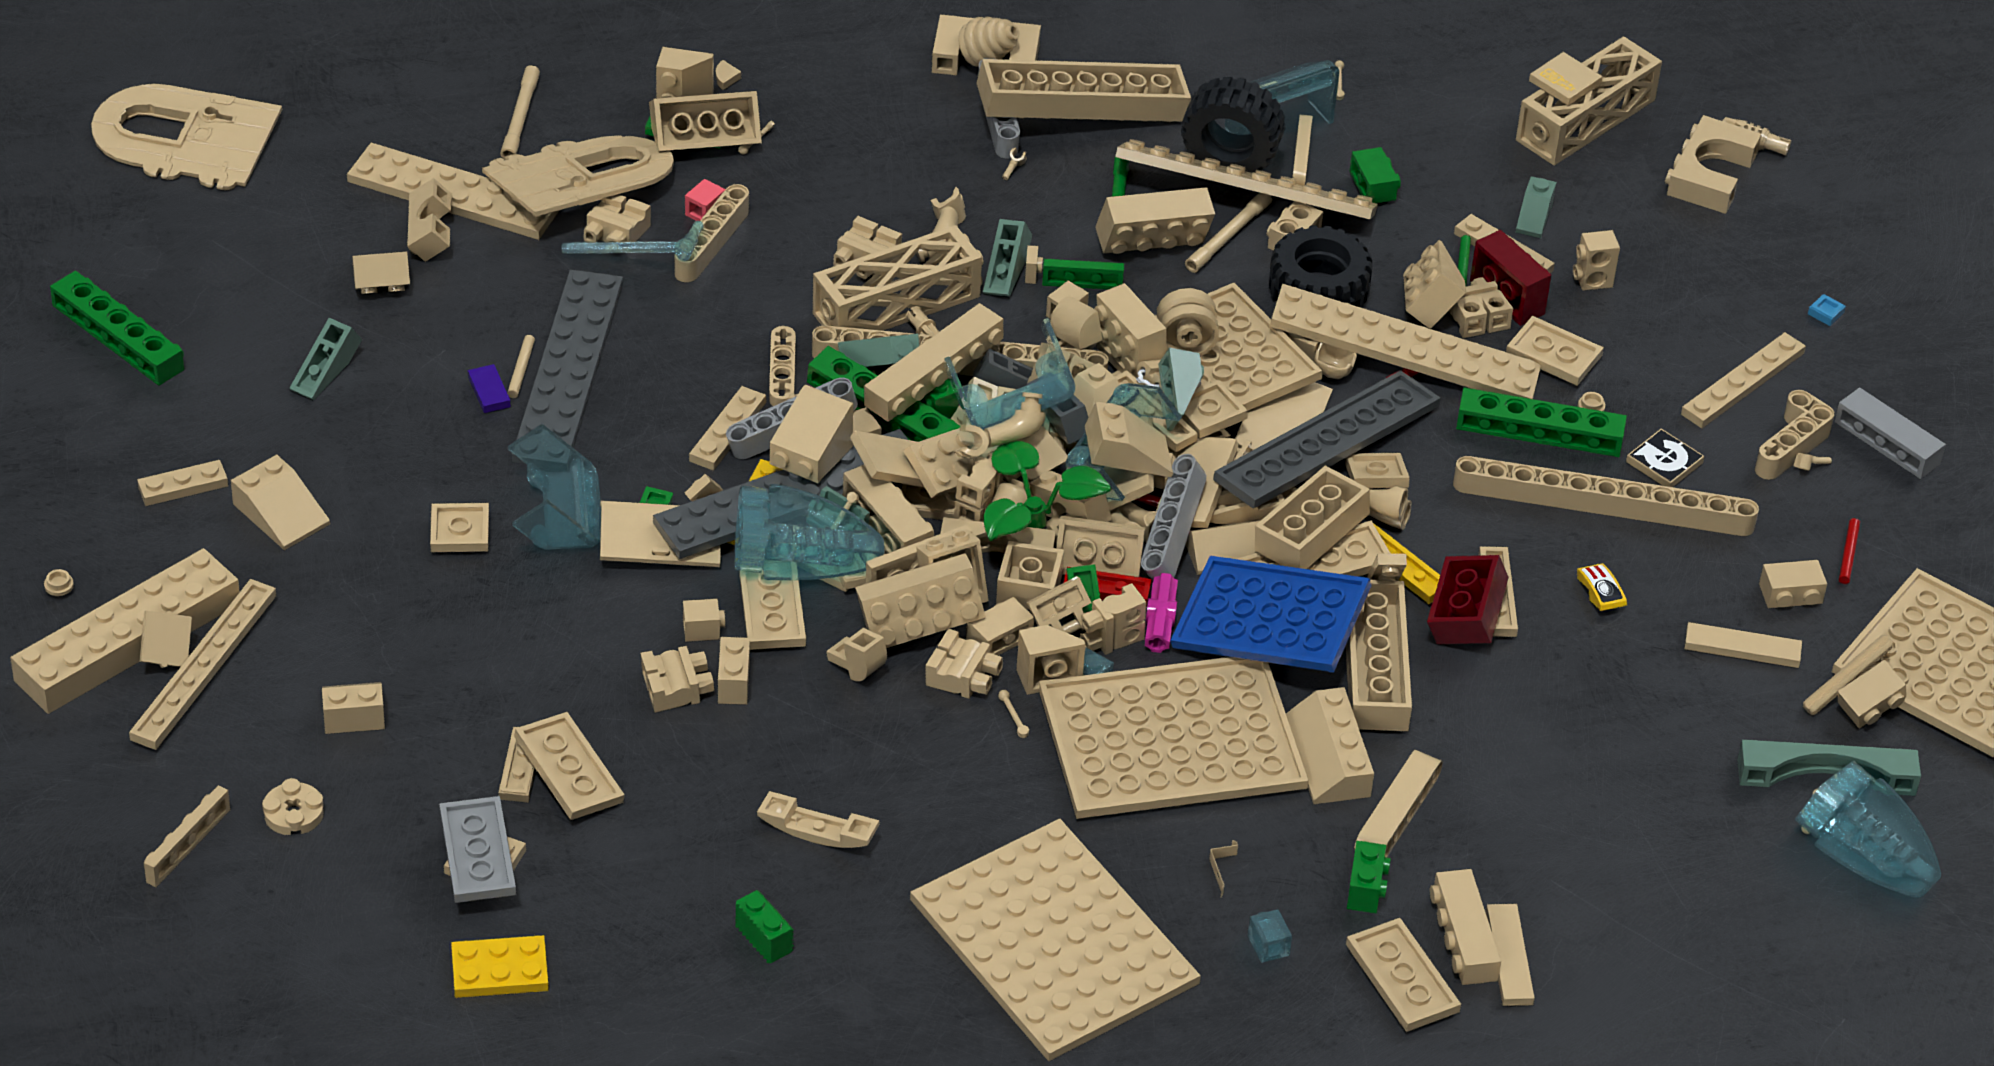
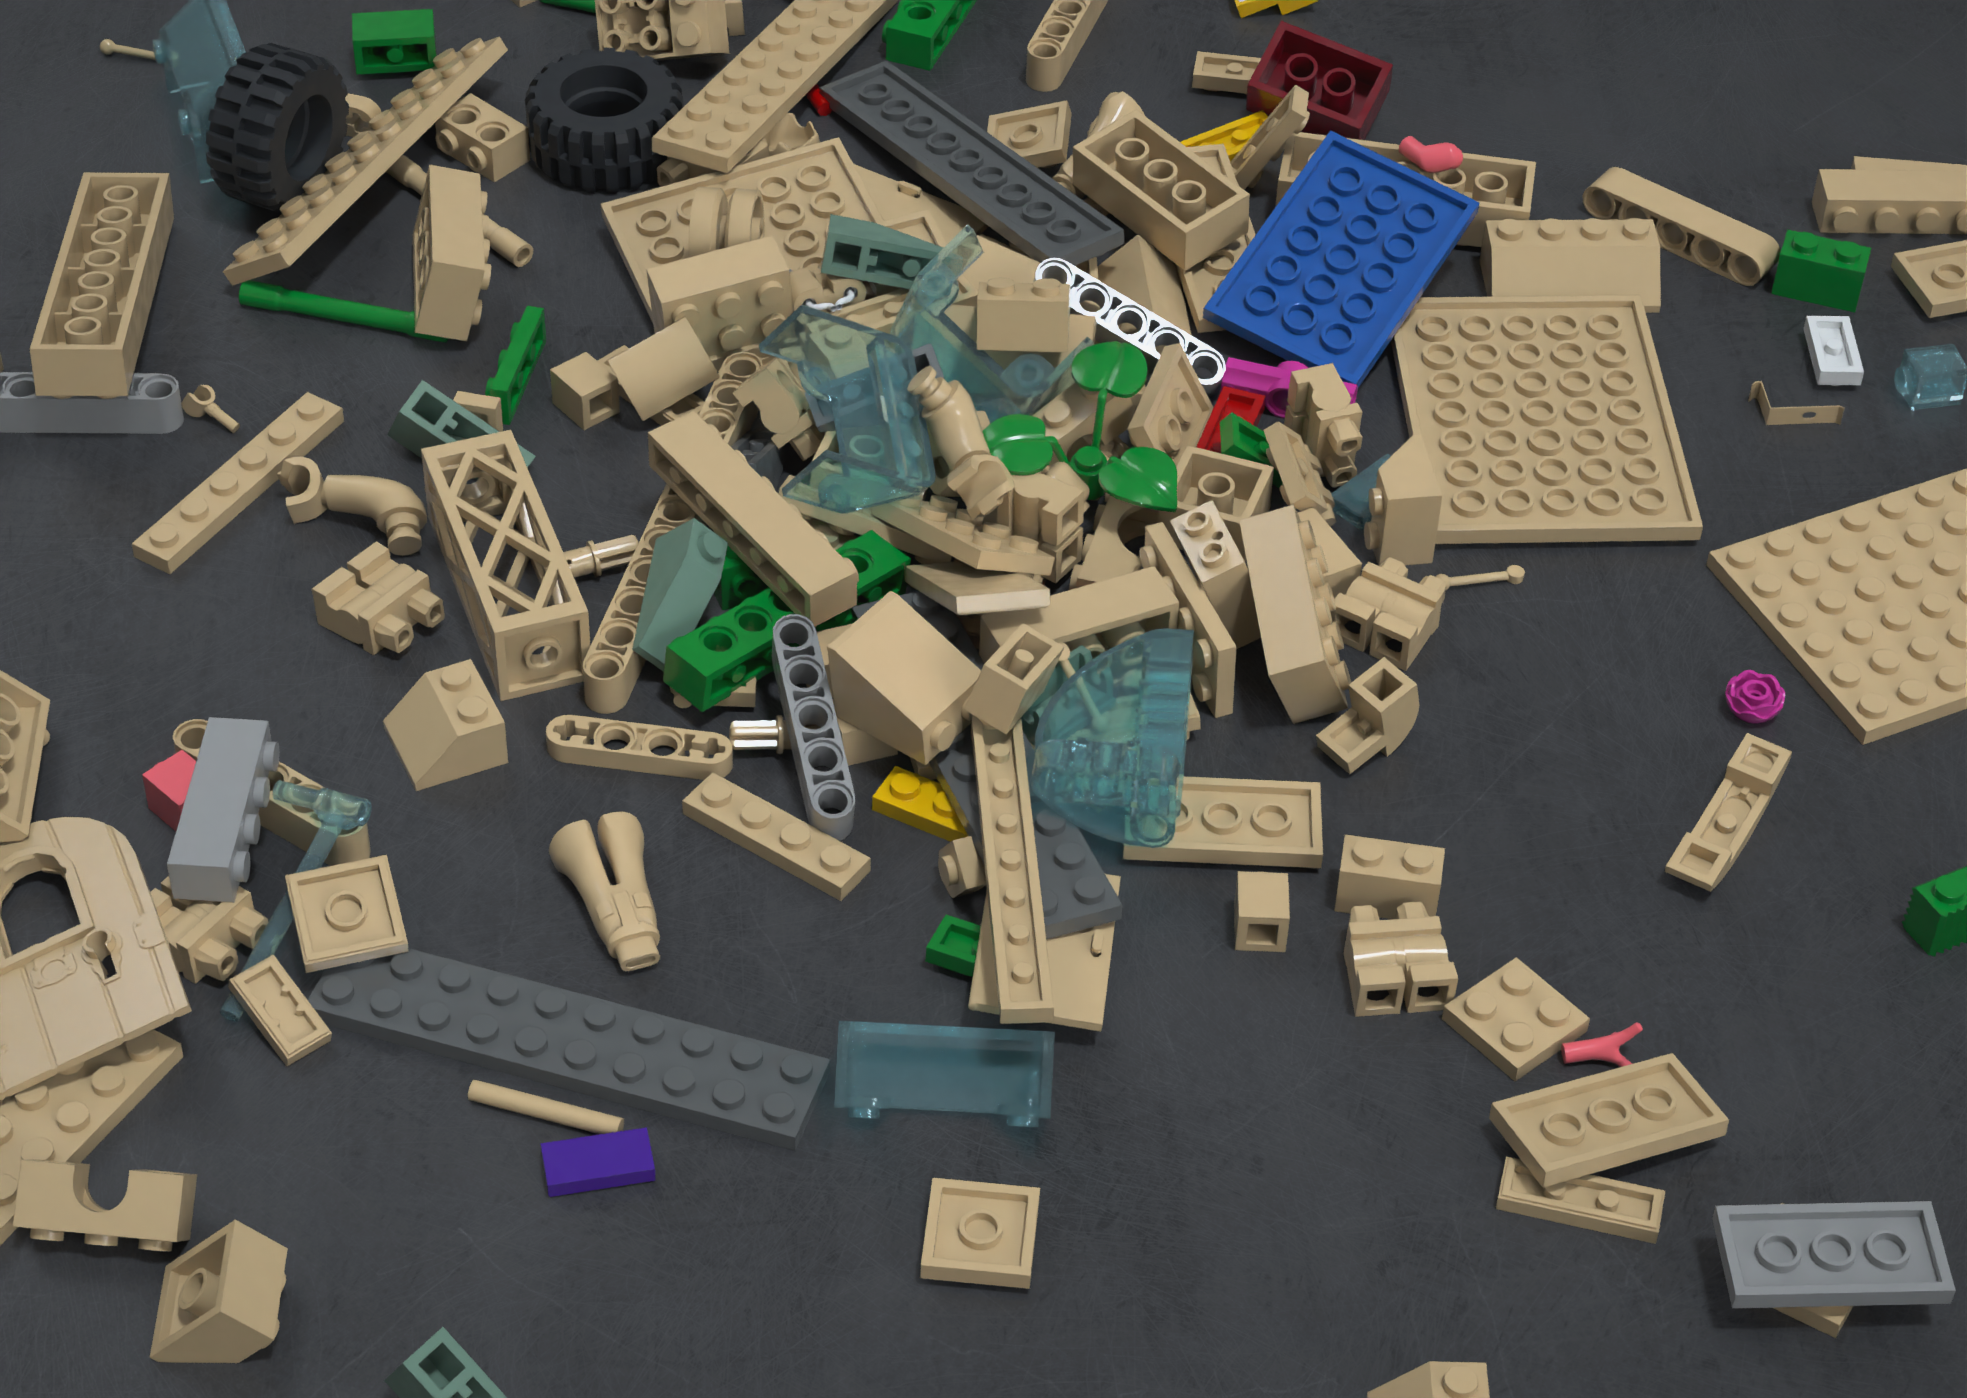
camera: 80 degrees left, 0 degrees up
(563, 260) = (280, 1010): none -> tan plate
(620, 265) = (346, 913): none -> tan tile
(629, 770) = (1600, 1048): none -> coral bar
(647, 735) = (1515, 1019): none -> tan plate
(673, 202) = (222, 810): none -> light grey brick
(675, 494) = (1012, 875): none -> tan plate
(682, 361) = (619, 912): none -> tan piece
(778, 293) = (447, 727): none -> tan slope
(808, 468) = (1013, 678): none -> tan brick
(930, 839) = (1754, 696): none -> dark pink plate
(971, 188) = (236, 483): none -> tan plate
(1286, 886) = (1833, 350): none -> white plate
(1388, 647) = (1431, 157): none -> coral arm

